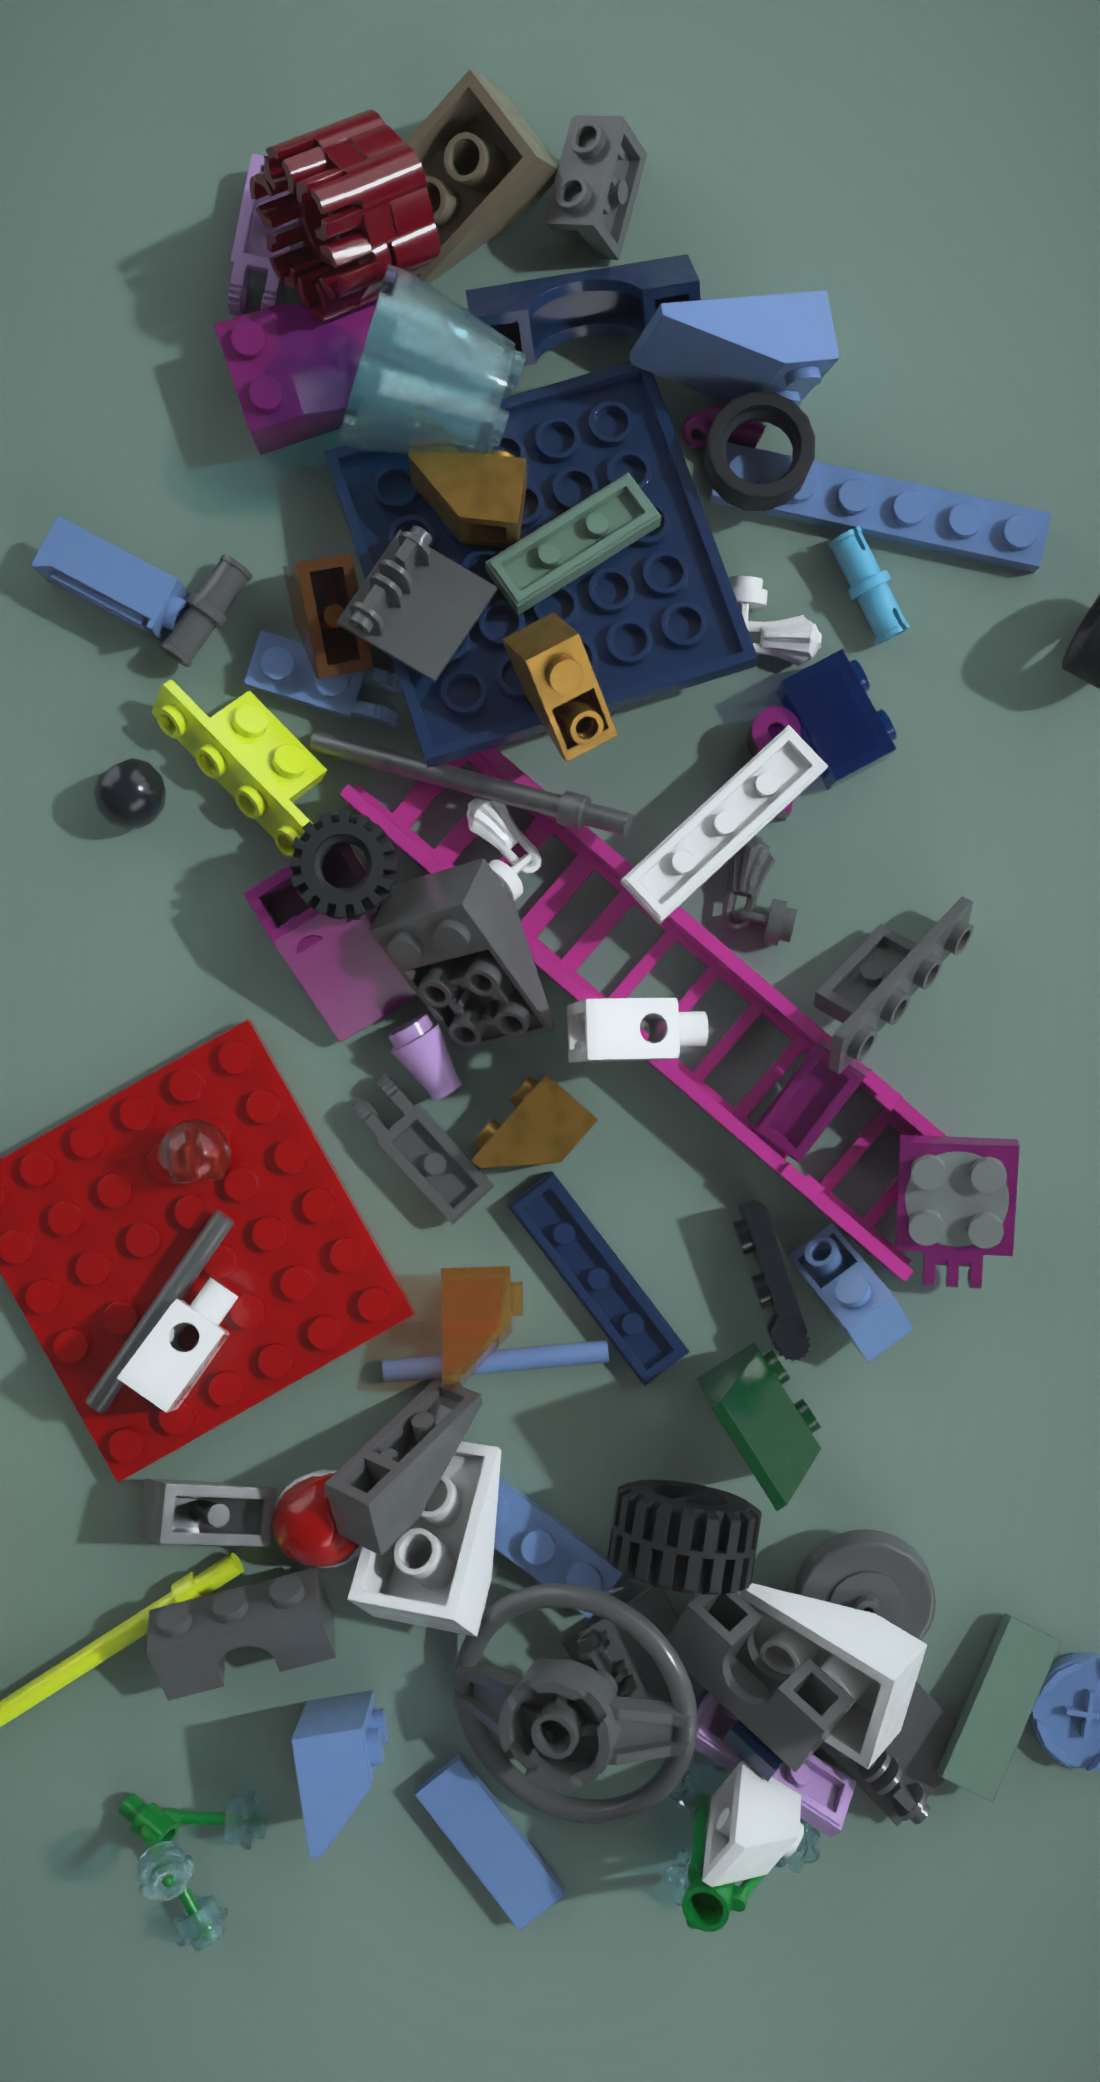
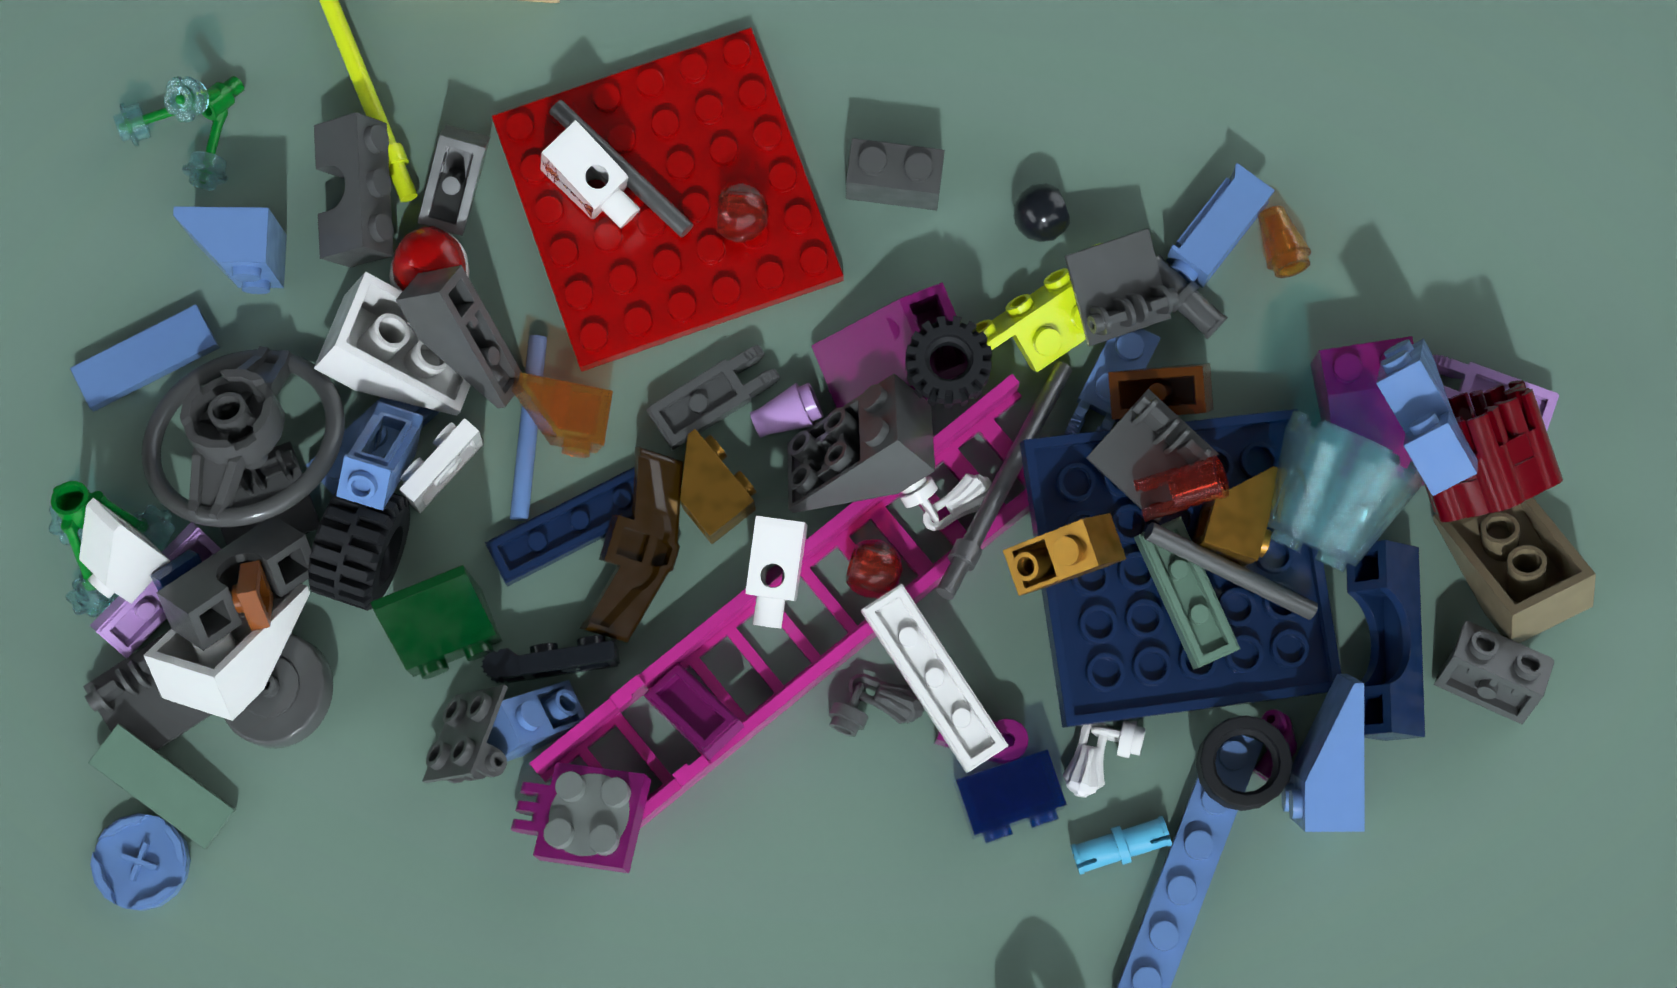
camera: 100 degrees right, 10 degrees down
(111, 976) = (894, 174): none -> dark grey brick
(120, 502) = (1283, 245): none -> clear orange cone
(210, 682) = (1119, 287): none -> dark grey hinge
(322, 270) = (1424, 412): none -> medium blue arch
(452, 549) = (1188, 486): none -> clear red hinge
(539, 495) = (1230, 571): none -> dark grey bar
(548, 1447) = (454, 449): none -> white plate
(602, 919) = (873, 568): none -> clear red piece
(618, 1536) = (372, 478): none -> medium blue window
(620, 1200) = (640, 547): none -> dark brown plate
(775, 1651) = (253, 595): none -> dark orange plate
(881, 978) = (785, 791): dark grey bracket -> none
(889, 1363) = (463, 745): none -> dark grey hinge

